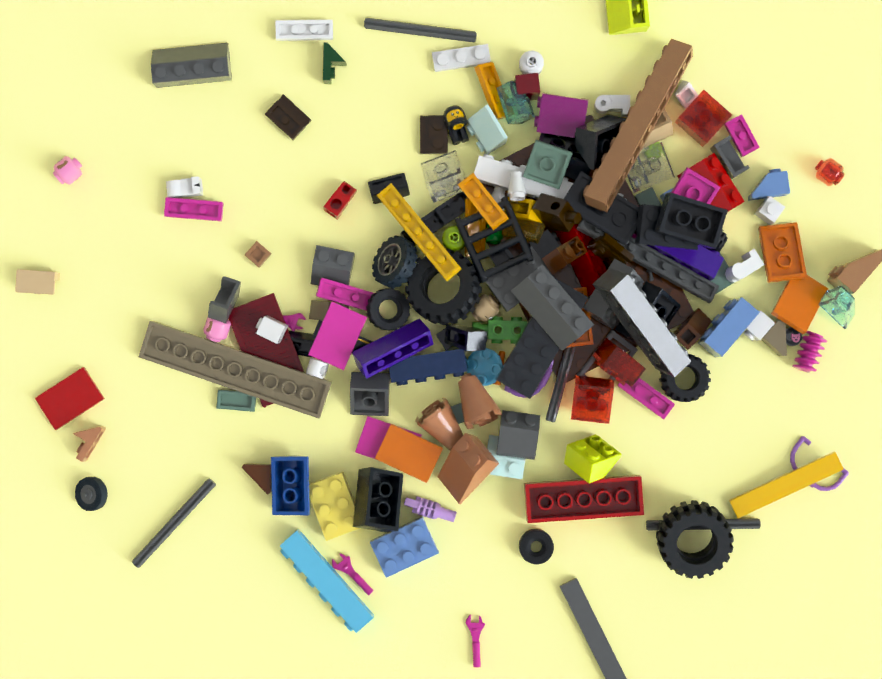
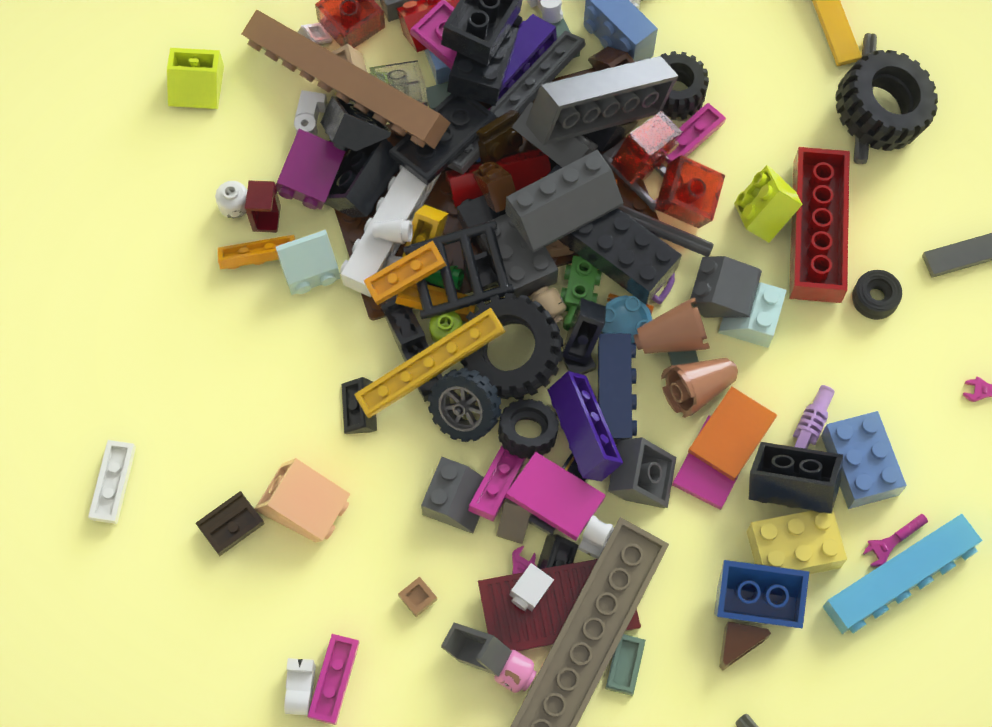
camera: 80 degrees left, 20 degrees down
(191, 65) = (121, 648): dark grey slope -> none
(310, 163) = (303, 501): none -> light nougat slope
(330, 59) = (161, 452): dark green slope -> none
(339, 200) = (363, 471): red leg -> none
(420, 30) = (151, 333): dark grey axle -> none
(433, 135) = (298, 337): dark brown plate -> none
(443, 176) = (358, 328): clear slope -> none
(455, 121) = (286, 302): black piece -> none
(460, 58) = (202, 287): white plate -> none
(466, 467) = (764, 358): nougat slope -> none
(515, 107) = (280, 225): clear light blue slope -> none
(531, 230) = (453, 222): clear yellow tile -> none
(547, 164) = (371, 188): sand green tile -> none
(556, 213) = (439, 187): dark brown torso -> none

